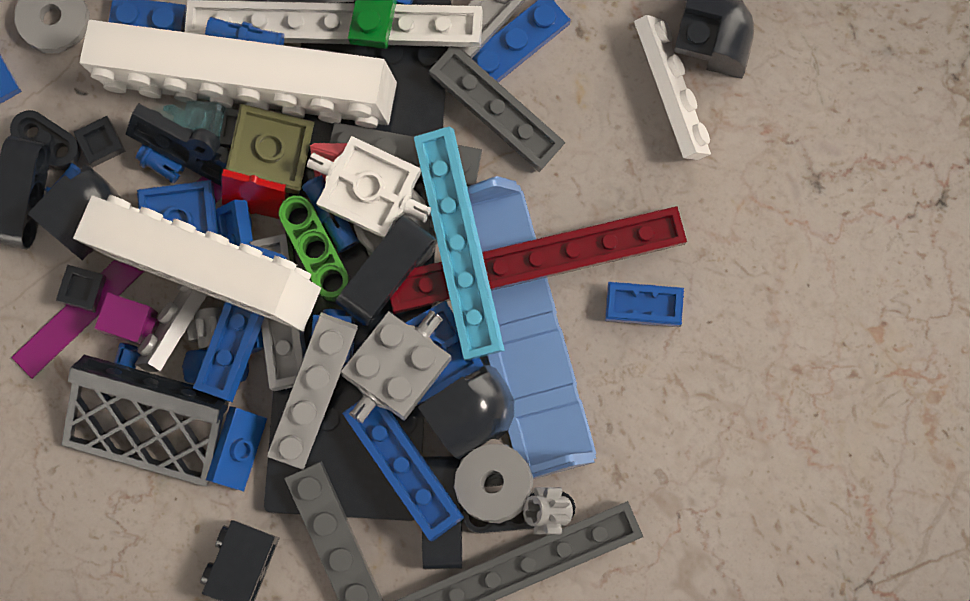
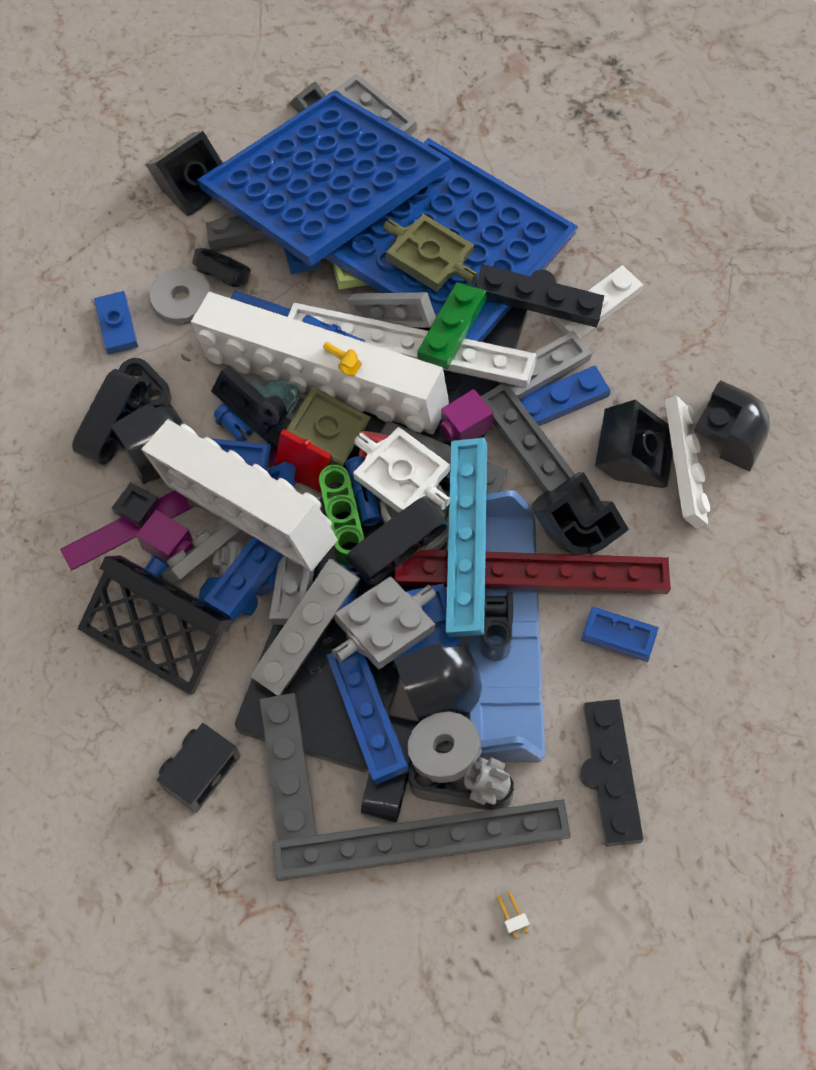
camera: 15 degrees right, 15 degrees down
(99, 141) = (188, 395): black plate -> none
(236, 448) = (225, 667): blue plate -> none
(278, 77) = (349, 364): none -> yellow hand
(421, 100) = (466, 417): none -> magenta brick
(514, 324) = (497, 622): none -> black piece
(571, 185) = (577, 517): none -> black brick
(612, 82) = (635, 445): none -> black slope
(669, 456) = (611, 773): none -> black hinge

